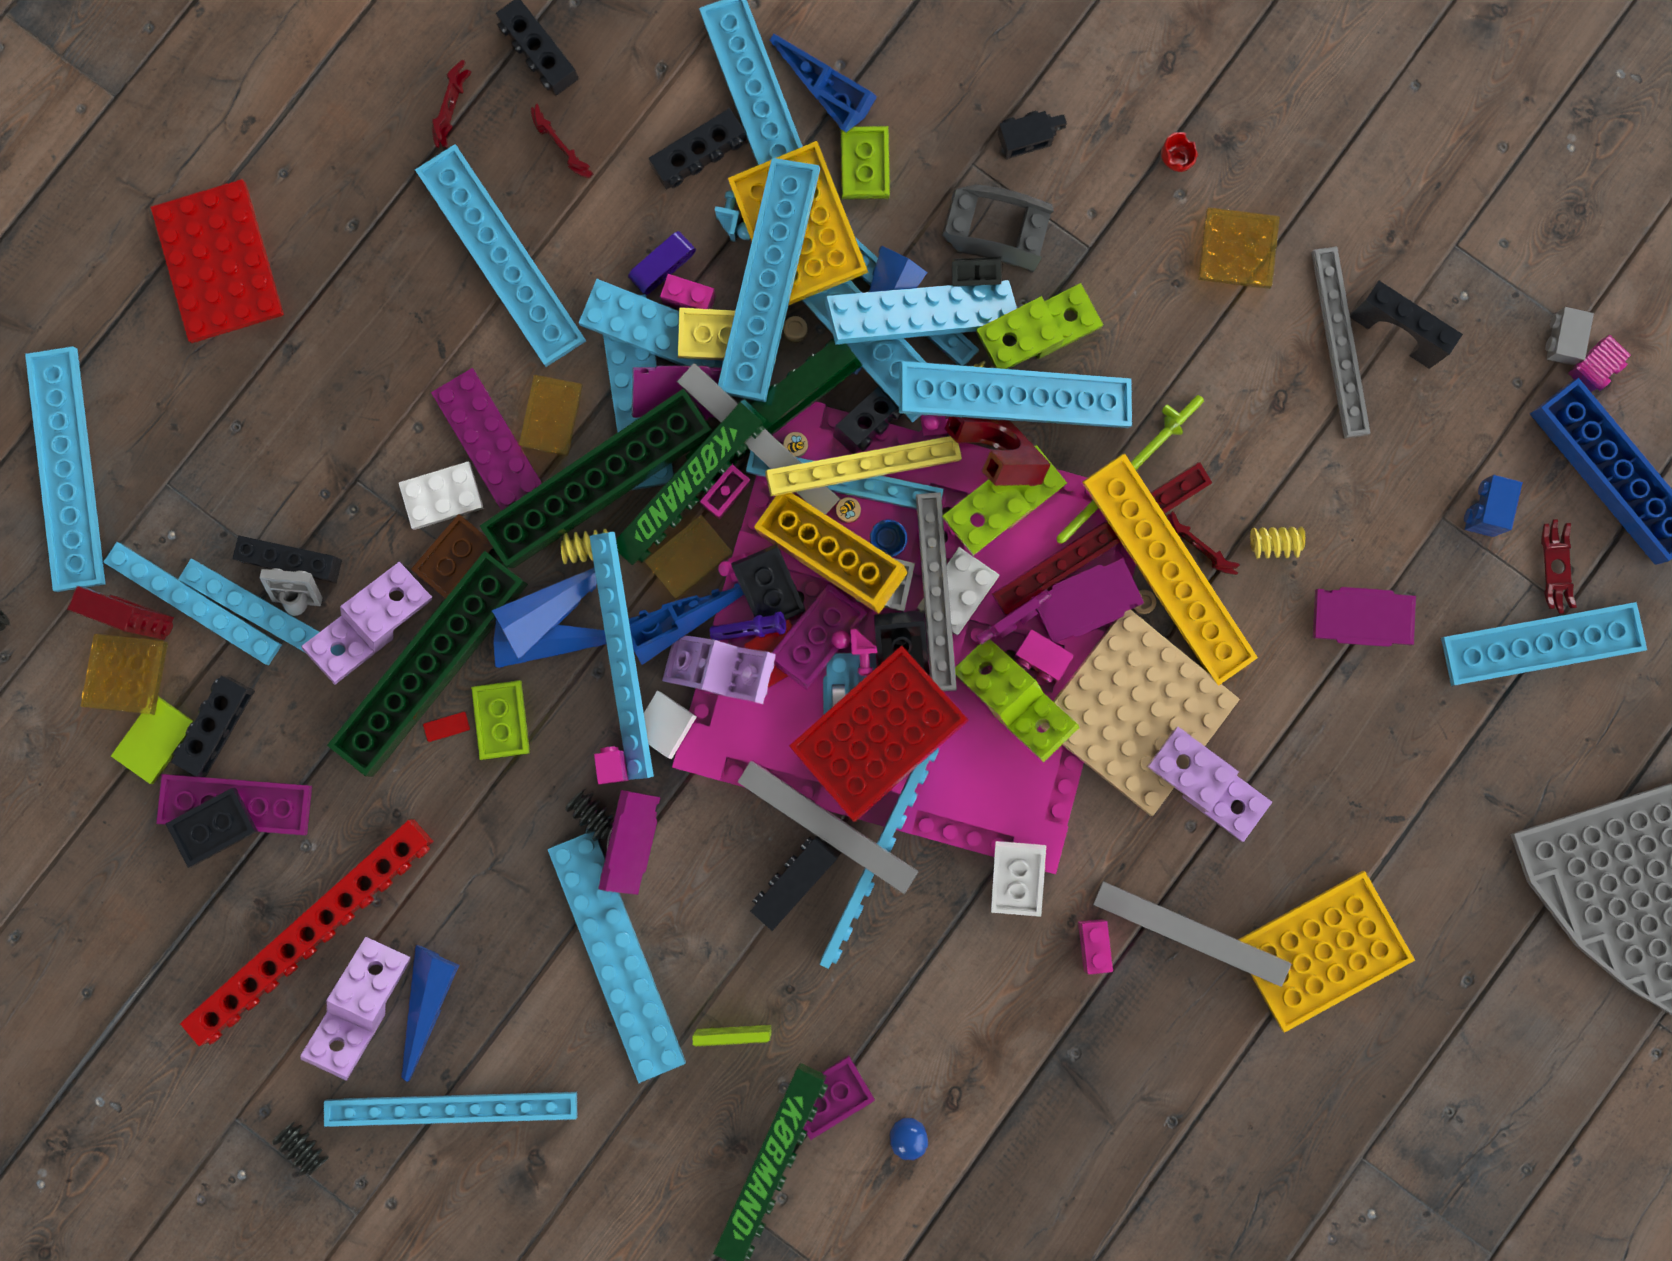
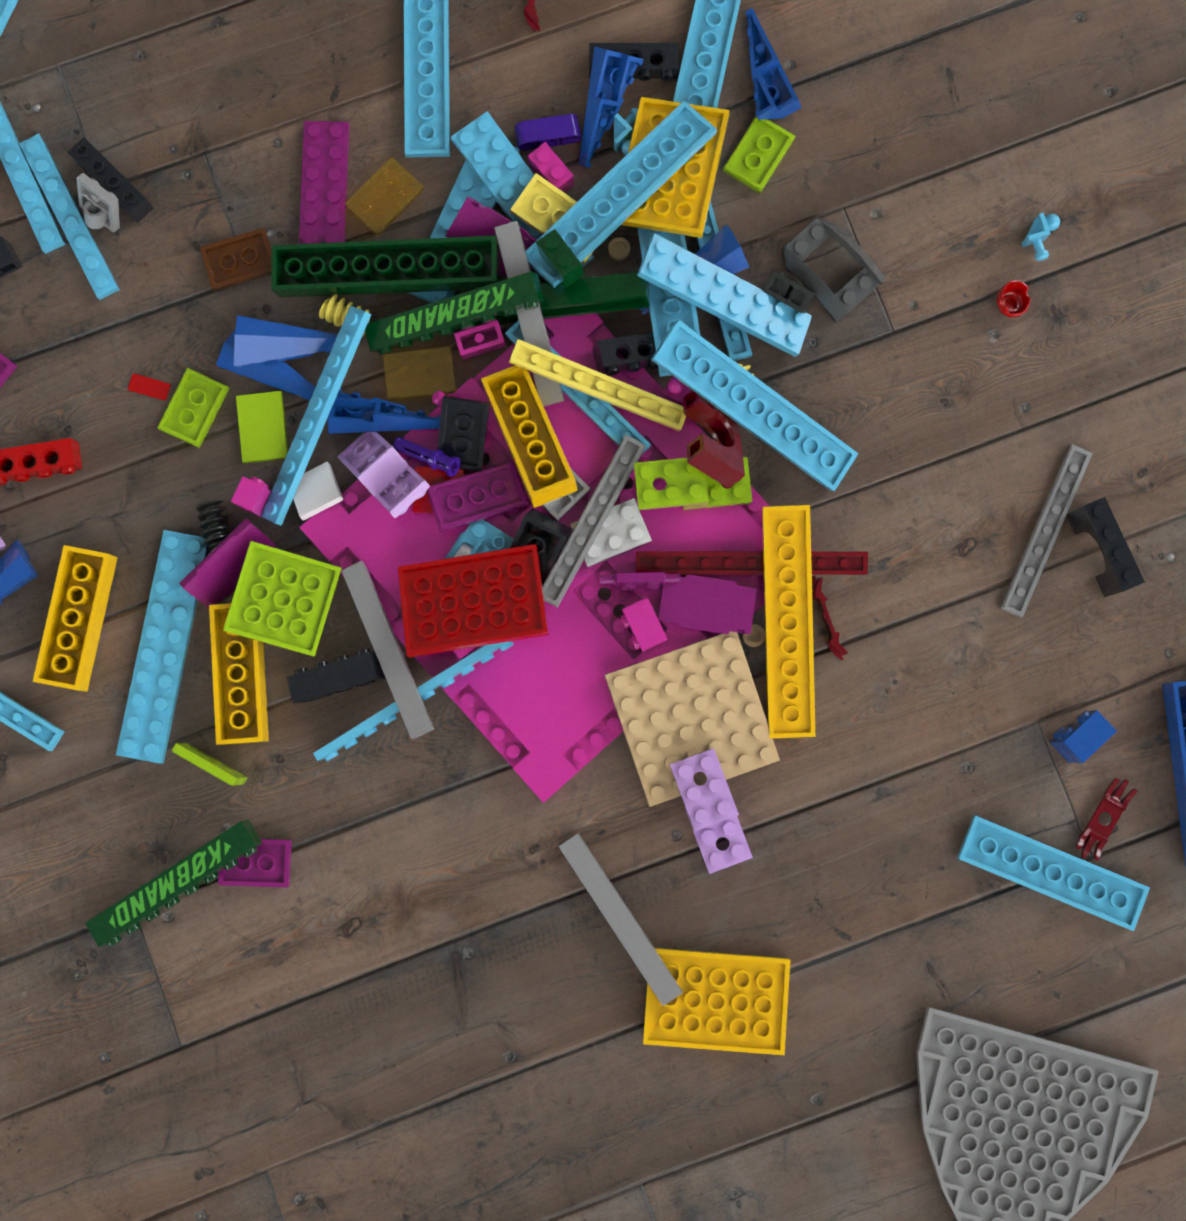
camera: 30 degrees right, 0 degrees up
(367, 623) = (138, 266): lavender bracket -> none
(426, 665) = (161, 328): dark green brick -> none
(441, 495) = (260, 205): white plate -> none
(521, 983) = (75, 618): none -> yellow brick
(575, 697) = (262, 427): none -> lime tile
(689, 182) = (608, 81): none -> blue wedge
(701, 842) = (282, 599): none -> lime plate
(704, 936) = (237, 683): none -> yellow brick
(756, 372) = (560, 258): none -> dark green brick
(796, 444) = (558, 337): tile -> none
(848, 510) = (566, 414): tan tile -> none
(859, 645) = (503, 523): dark pink piece -> none
(889, 537) = (582, 455): blue hair -> none
(908, 1139) = (295, 935): blue hair -> none
(1015, 699) = (599, 644): lime bracket -> none
(1018, 878) = (511, 787): white plate -> none
(1029, 133) = (904, 210): black hinge -> none
(1039, 327) = (811, 367): lime bracket -> none
(1095, 946) = (538, 880): dark pink brick -> none
(1162, 76) = (1039, 232): none -> medium azure piece
(1172, 426) = (866, 512): lime piece -> none
(1239, 248) = (1012, 405): clear yellow plate -> none
(1277, 541) = (890, 655): light yellow piece -> none
(1364, 616) = (922, 759): magenta piece -> none

